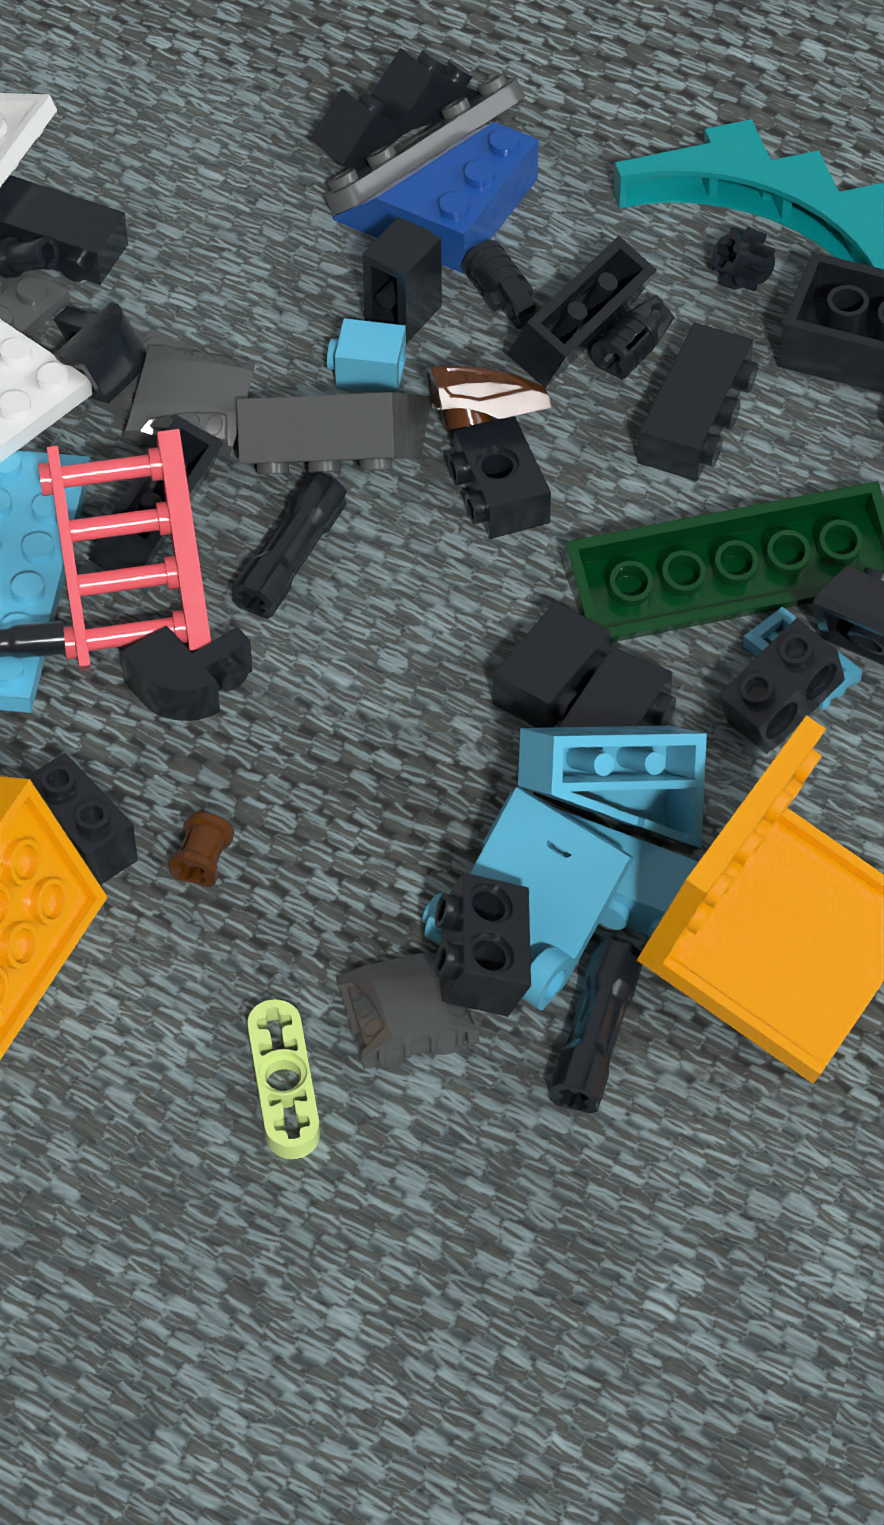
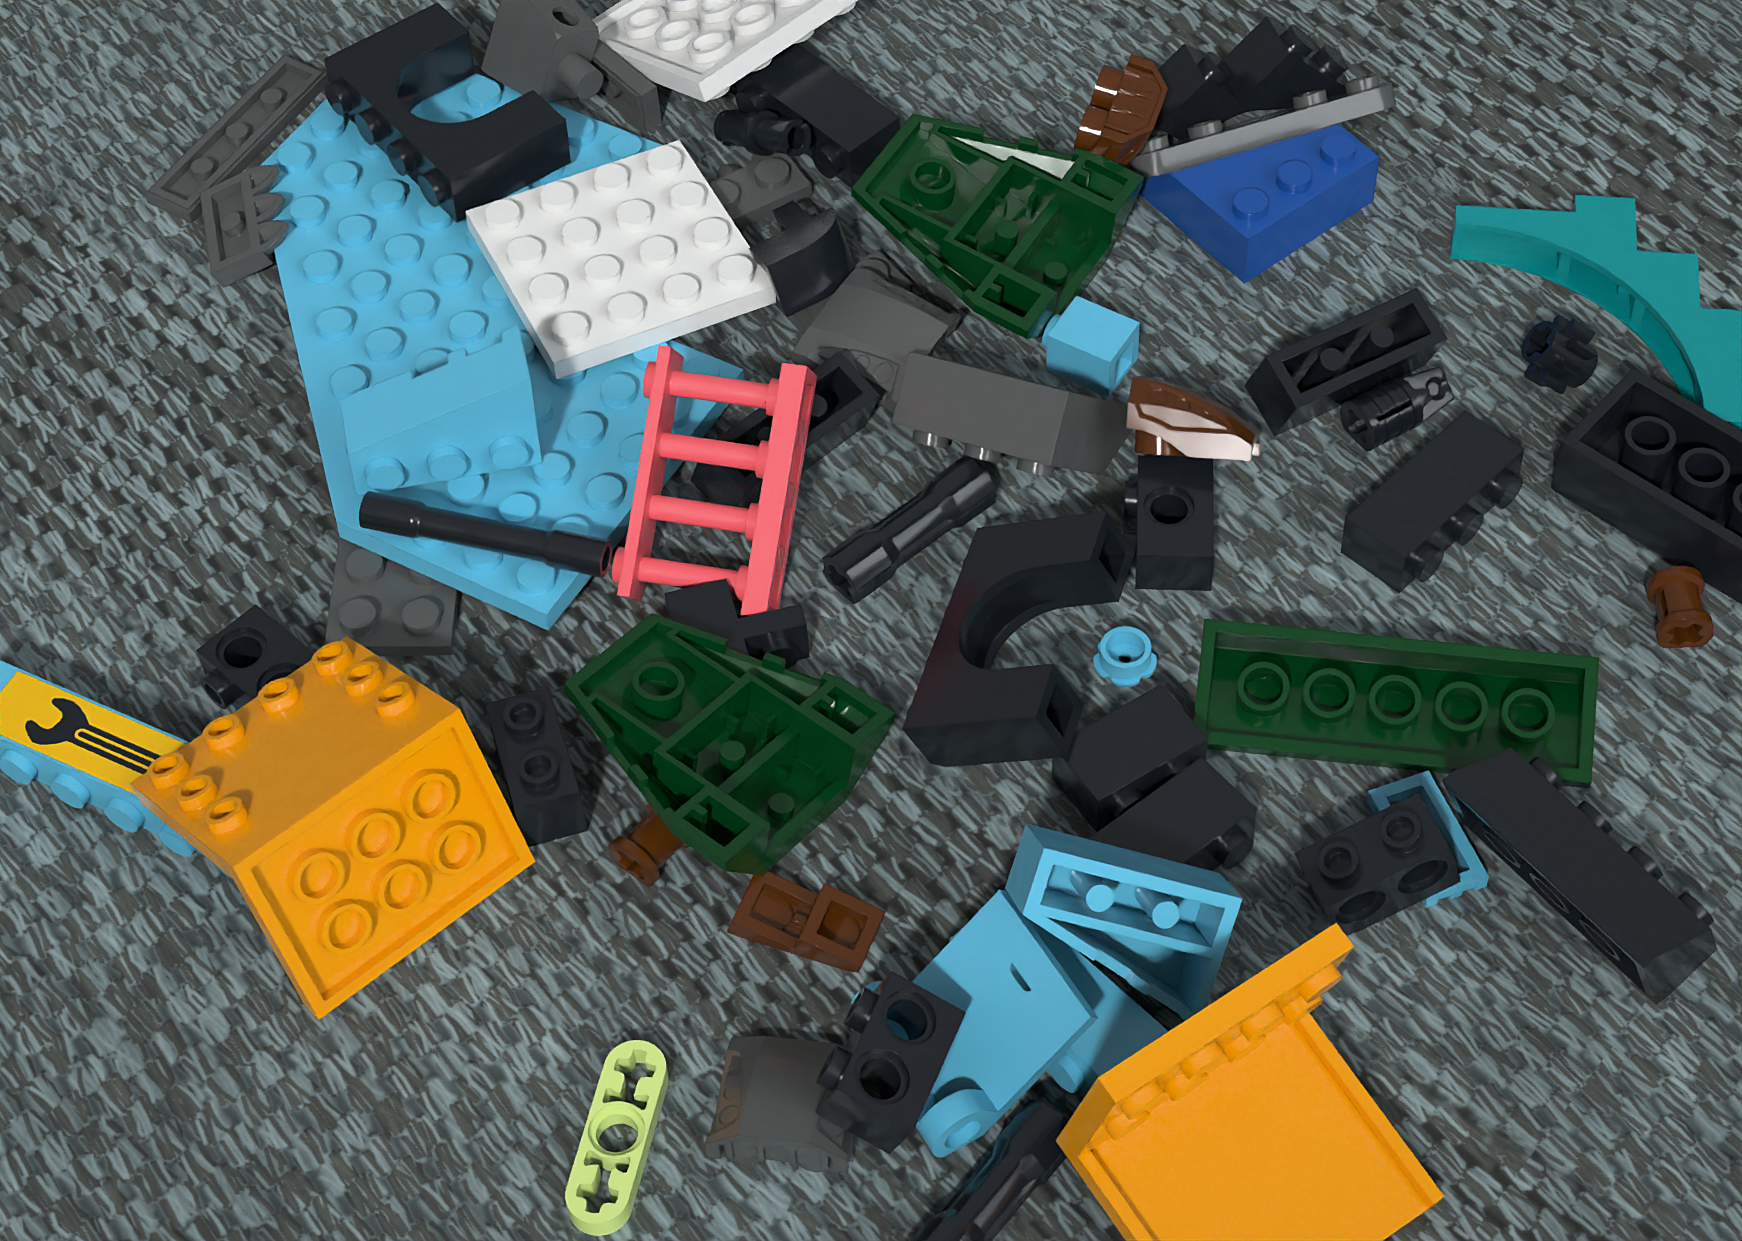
camera: 25 degrees right, 0 degrees up
(232, 746) = (725, 742): none -> dark green wedge
(250, 269) = (998, 218): none -> dark green wedge
(310, 172) = (1122, 110): none -> reddish brown slope
(365, 872) = (815, 926): none -> reddish brown slope
(391, 561) = (1010, 576): none -> black arch
(403, 277) = (1159, 269): black brick -> none
(500, 282) = (1274, 299): black hinge -> none
(511, 581) = (1129, 643): none -> medium azure plate

